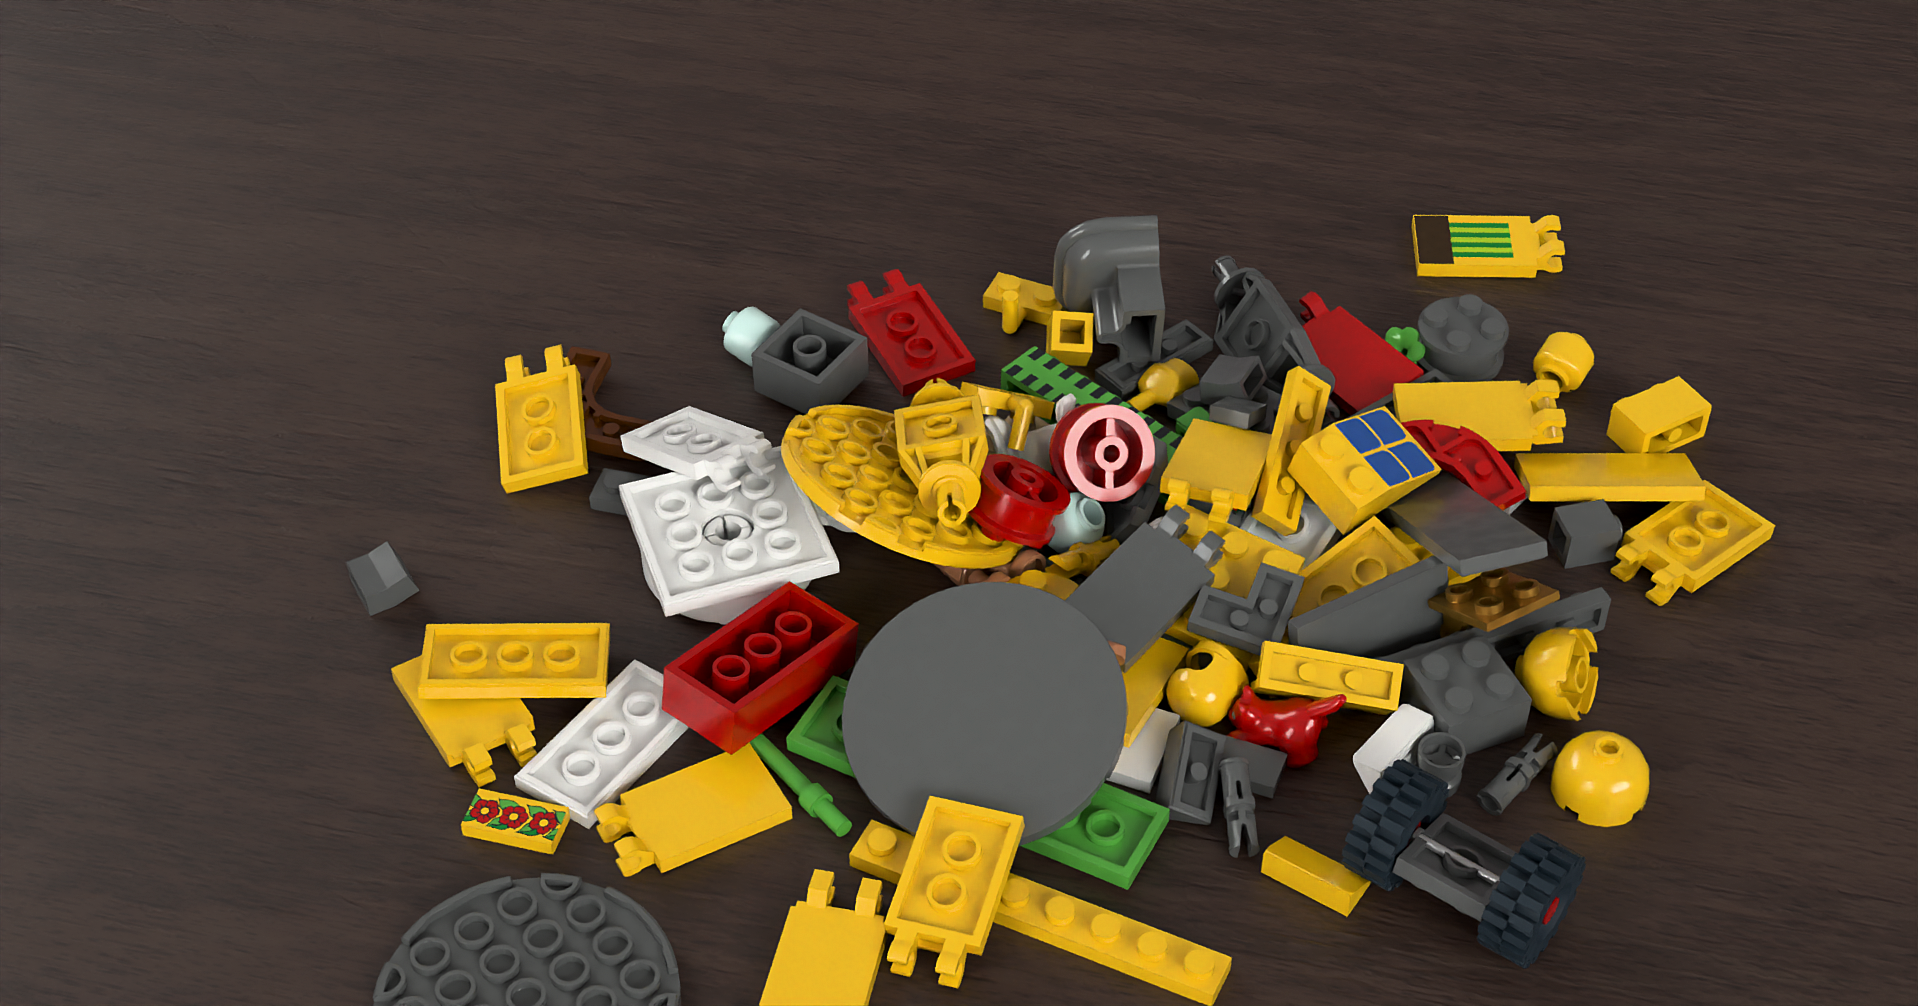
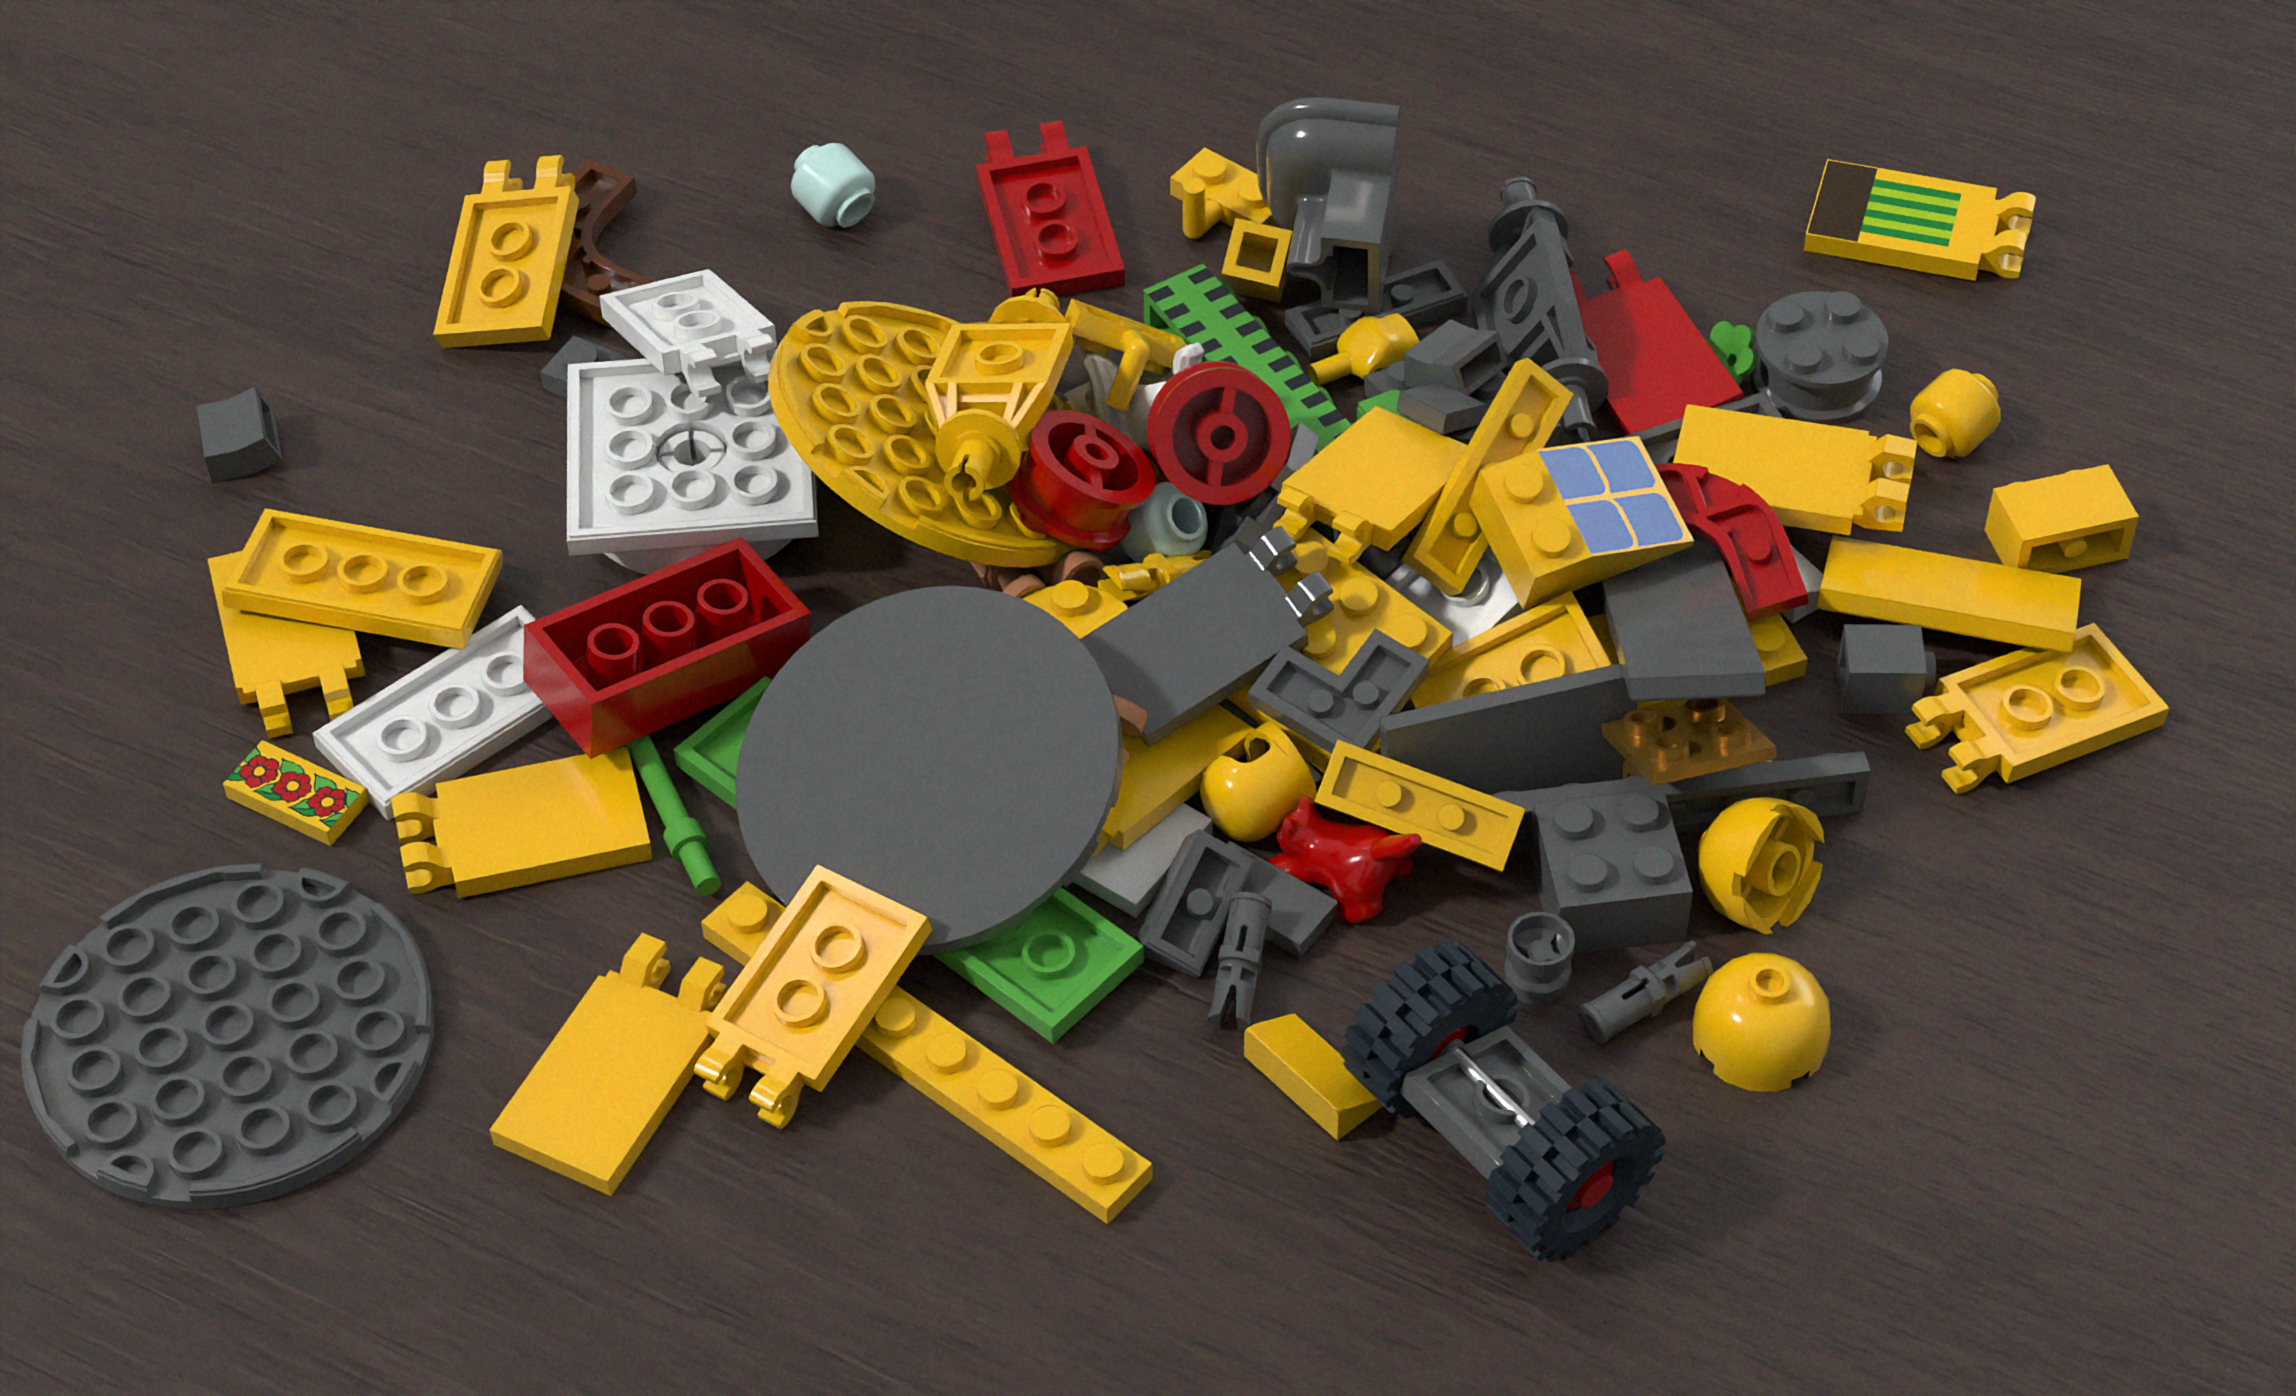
camera: 15 degrees right, 5 degrees up
(810, 362) = (892, 236): dark grey brick -> none
(1392, 741) = (1485, 914): white slope -> none

